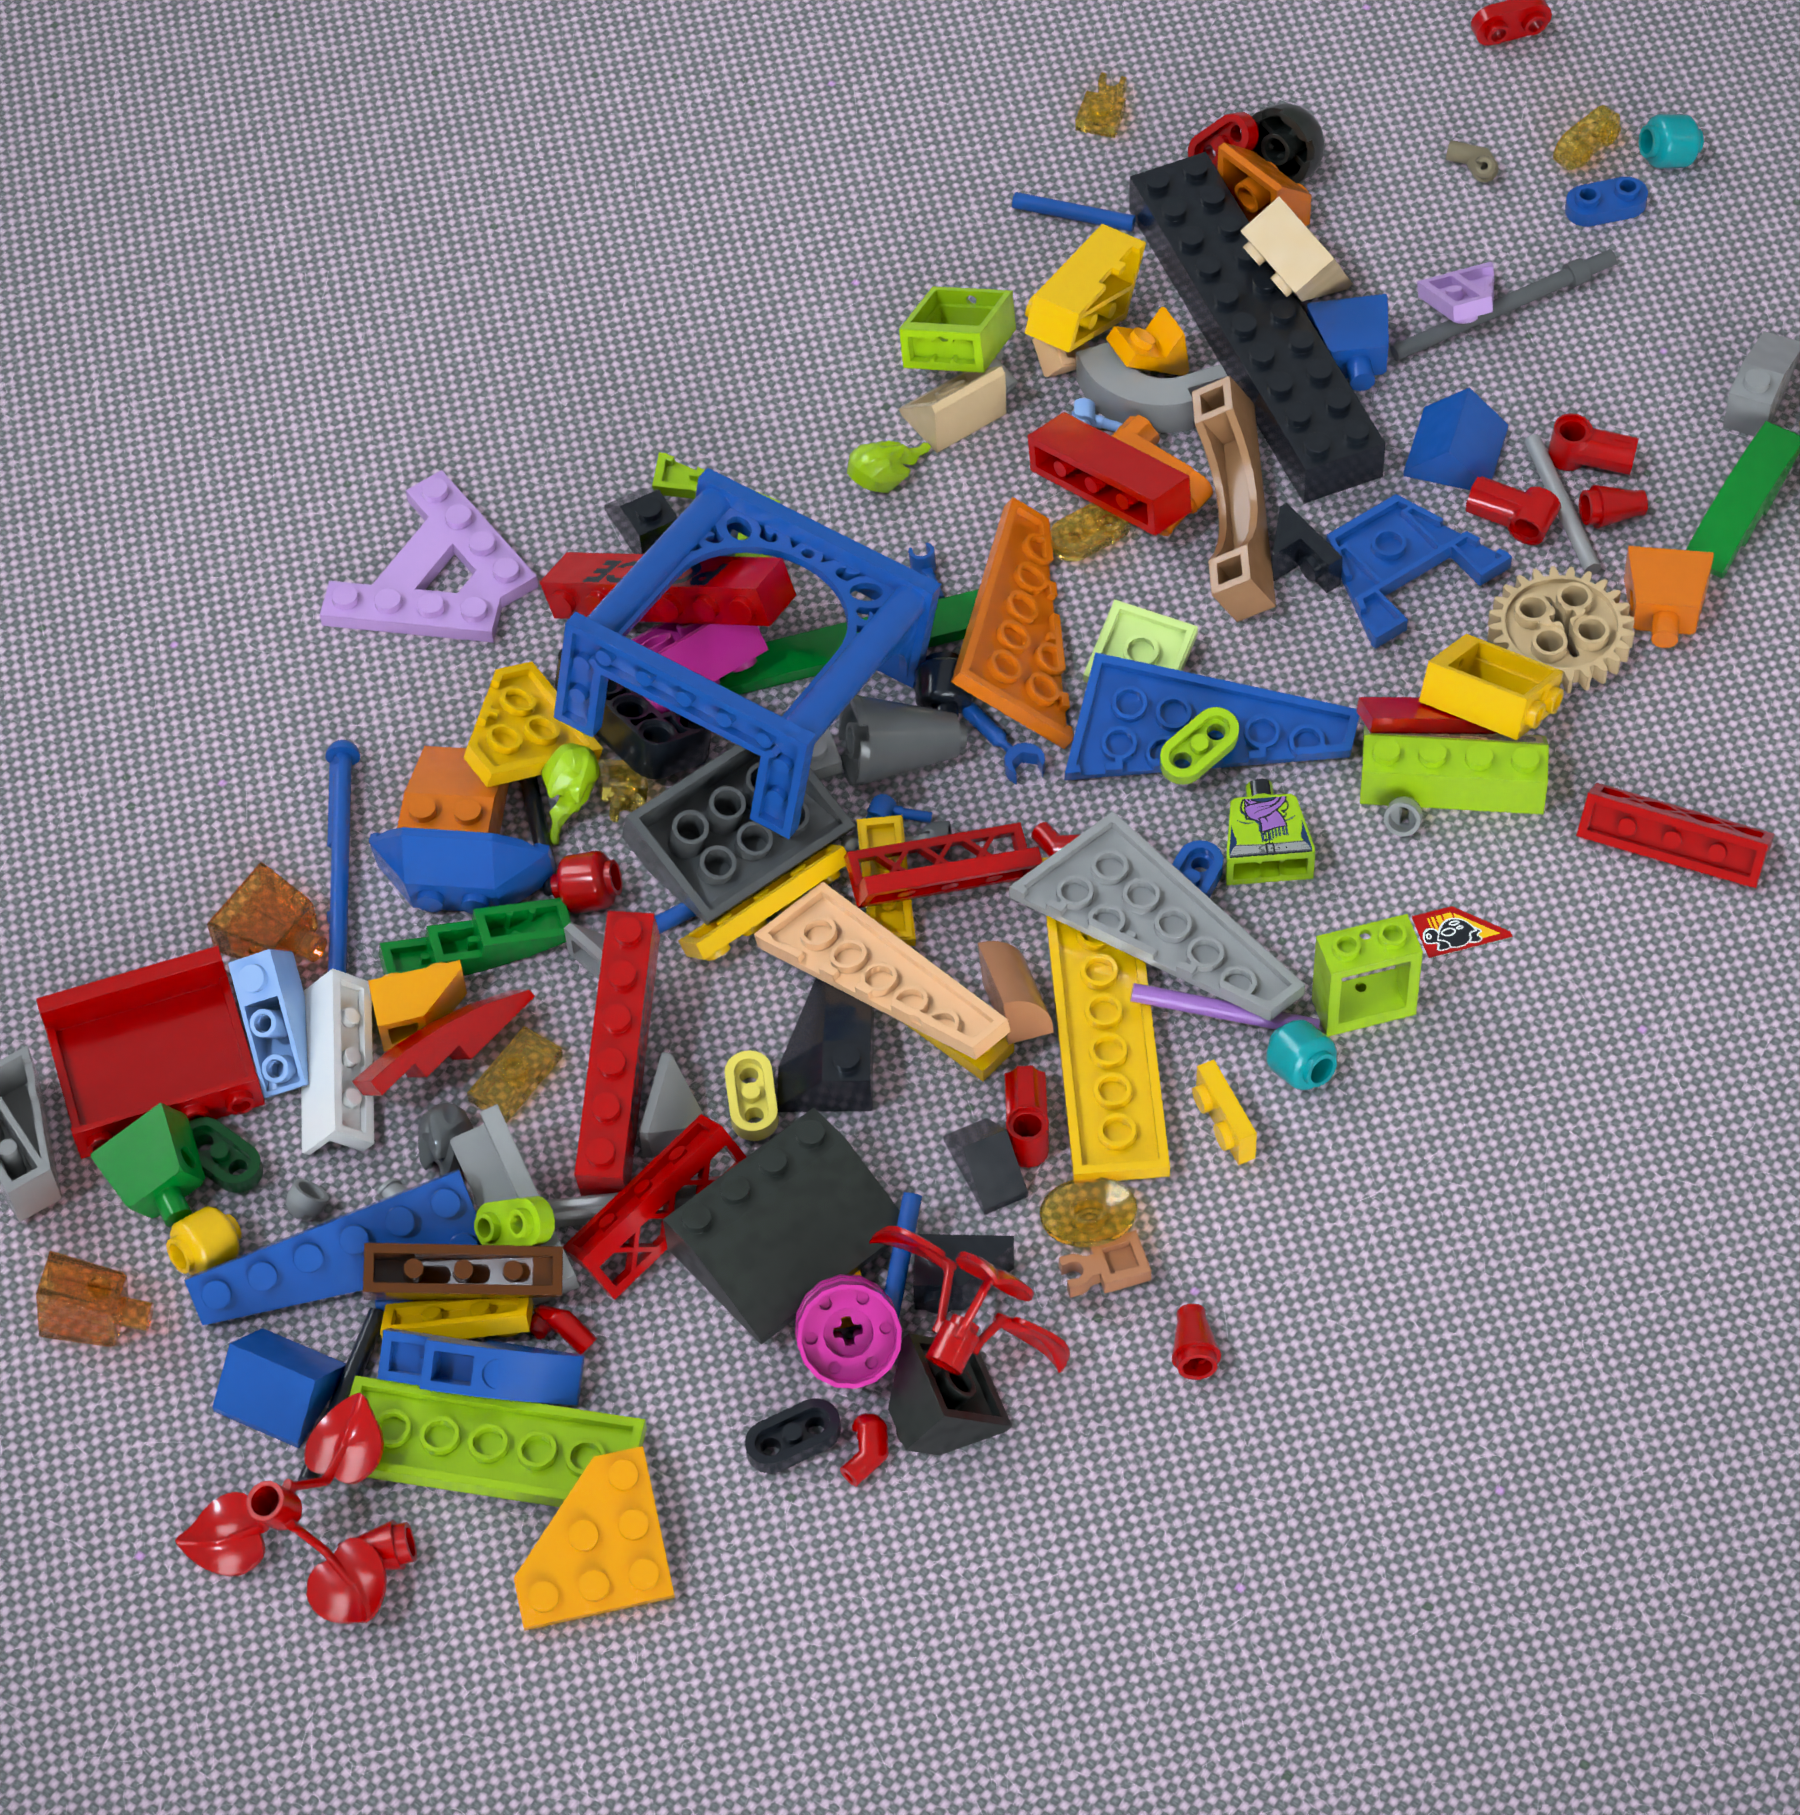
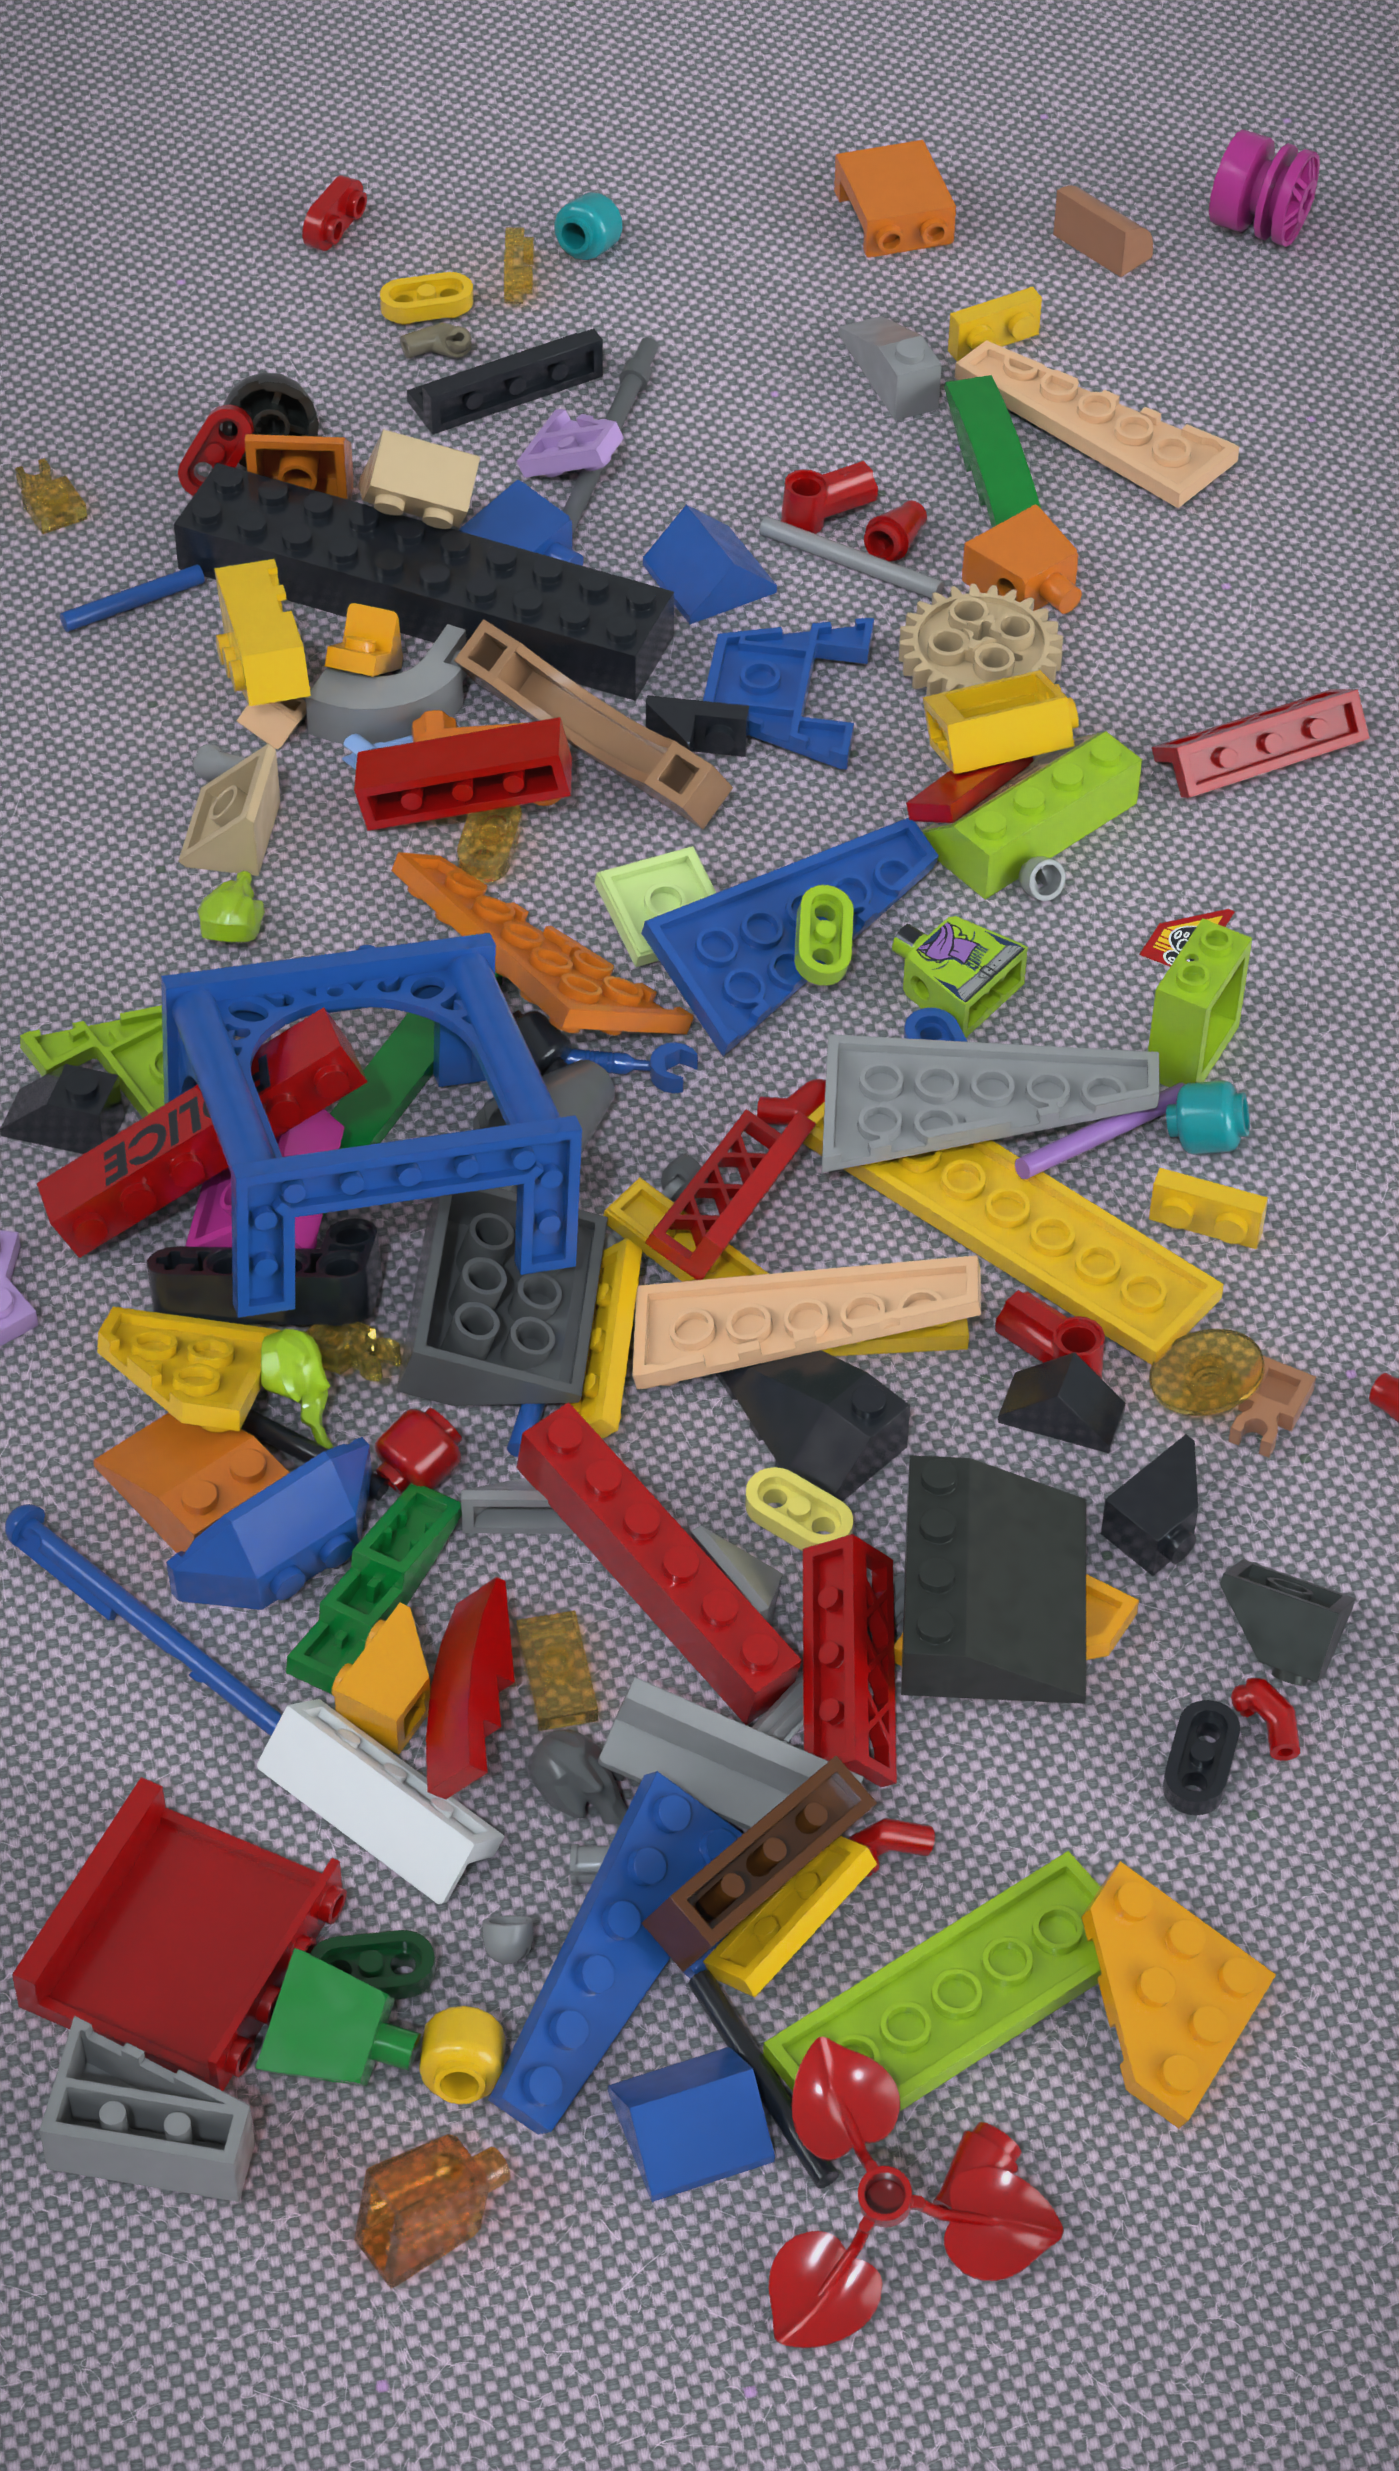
camera: 50 degrees left, 5 degrees down
(266, 916) = (151, 1724): clear orange torso -> none
(273, 1018) = (276, 1803): light blue slope -> none
(481, 1368) = (869, 1936): blue slope -> none
(515, 1222) = (759, 1777): lime plate -> none
(853, 1360) = (1164, 1618): dark pink wheel -> none
(884, 805) = (605, 1192): blue hand -> none
(900, 1258) = (1116, 1541): blue bar -> none
(955, 333) = (154, 751): lime window -> none
(958, 1337) = (1272, 1529): red plant -> none
(1013, 991) = (900, 1238): nougat brick -> none
(1485, 220) = (508, 381): none -> black fence
(1502, 123) = (426, 297): none -> yellow plate
(1525, 514) = (836, 579): red piece -> none
(1606, 201) = (587, 305): blue plate -> none

